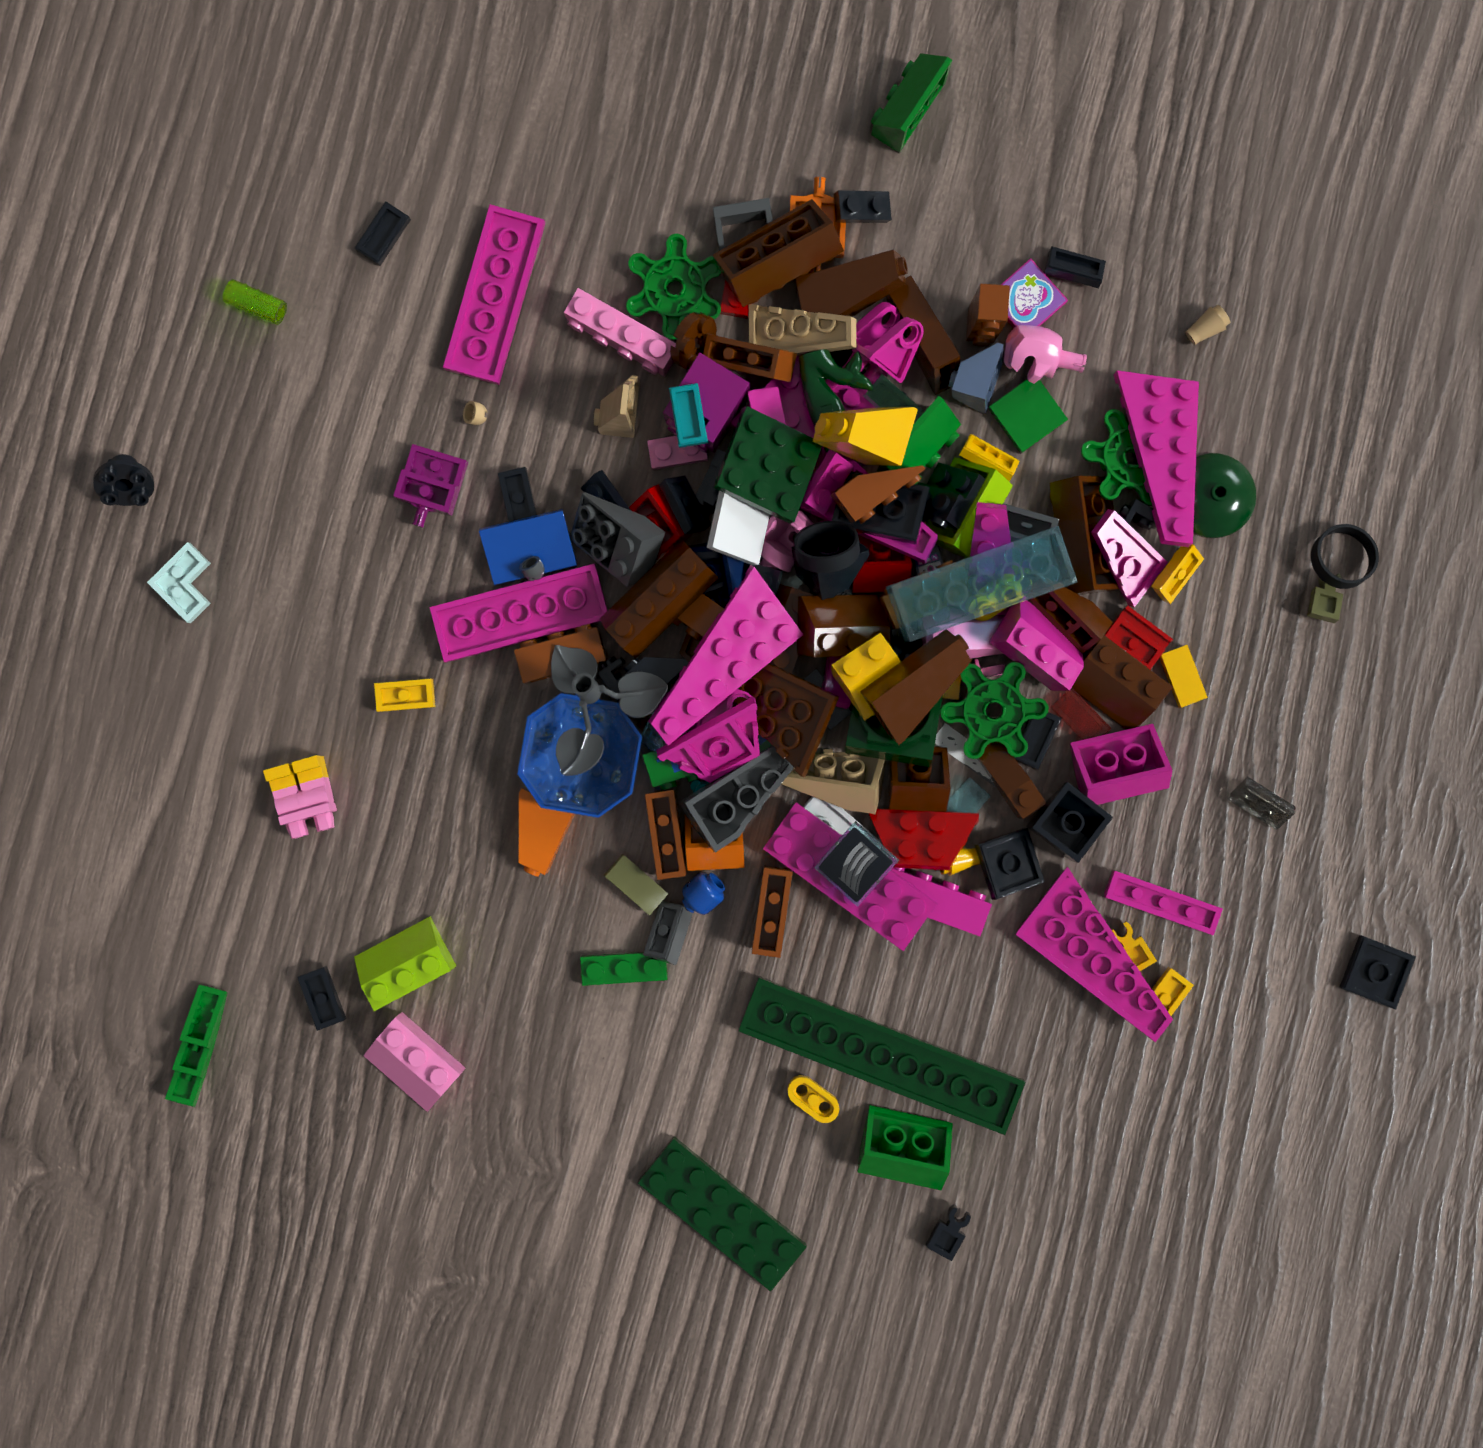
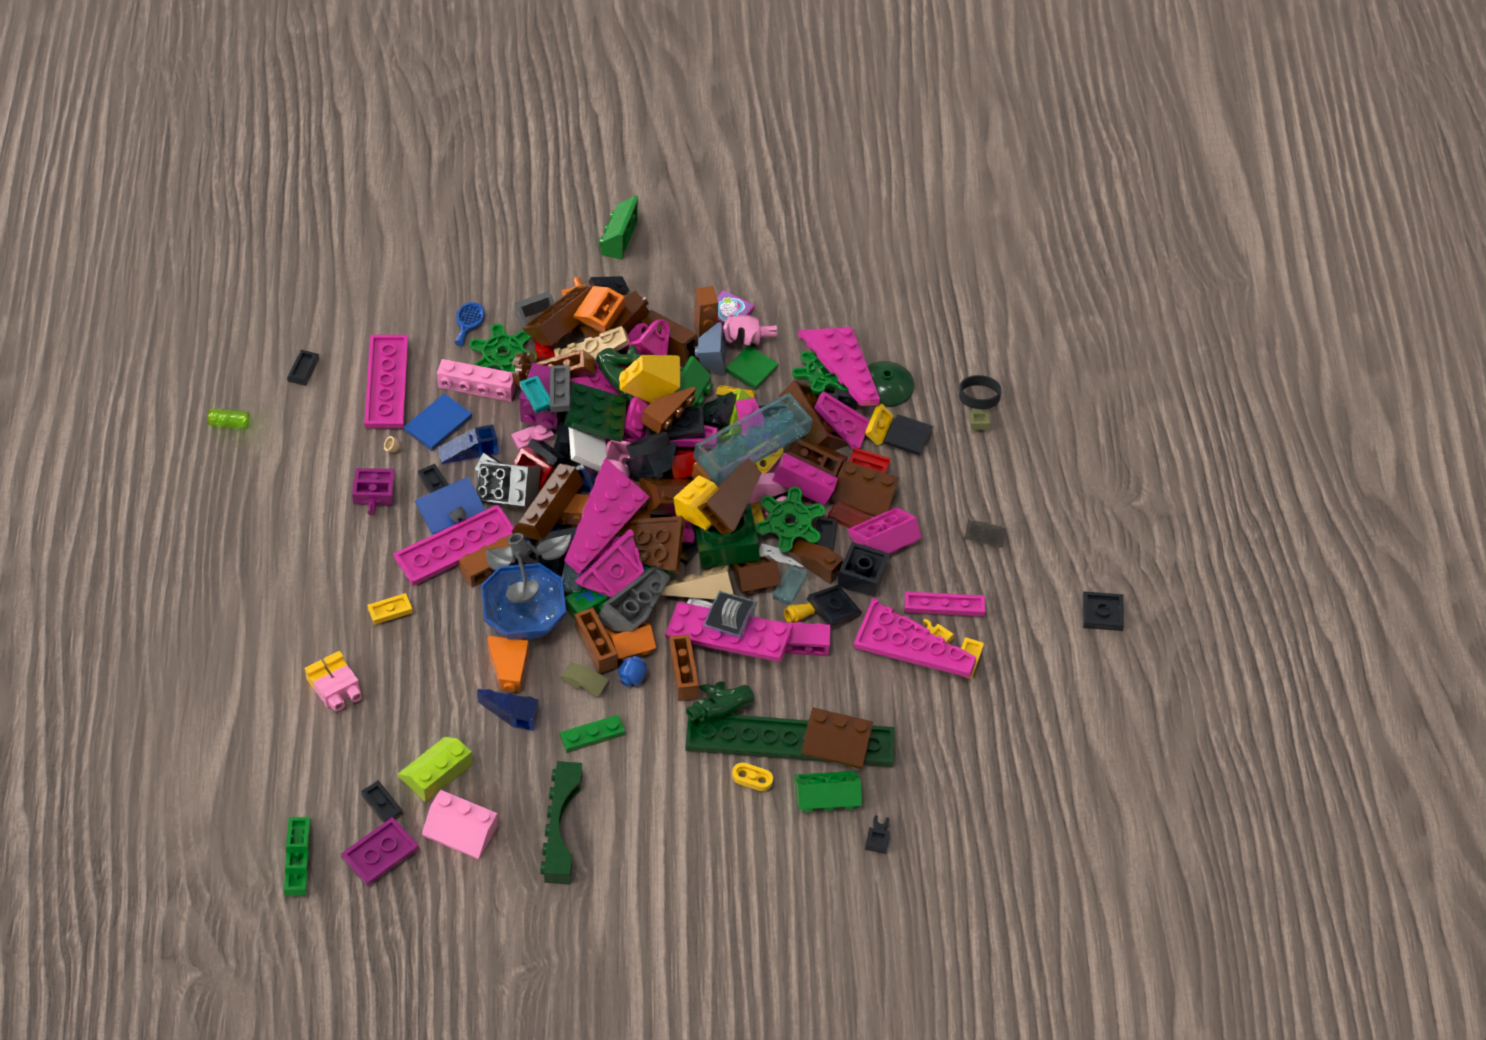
camera: 20 degrees left, 35 degrees down
(123, 482) = (165, 530): black plate -> none
(175, 581) = (213, 581): light aqua plate -> none
(302, 1070) = (379, 851): none -> magenta plate
(525, 1152) = (558, 859): none -> dark green arch
(530, 909) = (513, 709): none -> clear blue slope
(550, 387) = (438, 422): none -> blue tile
(580, 449) = (470, 445): none -> clear blue slope
(619, 410) = (489, 408): tan wedge -> none
(625, 236) = (466, 327): none -> blue piece
(668, 933) = (616, 701): dark grey slope -> none
(722, 1213) = (713, 867): dark green plate -> none
(723, 420) = (560, 388): none -> dark grey plate
(800, 989) = (722, 703): none -> dark green piece
(828, 270) = (600, 308): none -> orange slope
(923, 837) = (776, 598): red wing -> none
(941, 1088) = (837, 738): none -> reddish brown slope
(1075, 267) = (752, 288): black tile -> none
(1183, 676) = (908, 481): yellow tile -> none
(1209, 324) = (847, 296): tan cone -> none
(1213, 600) = (908, 434): none -> black slope

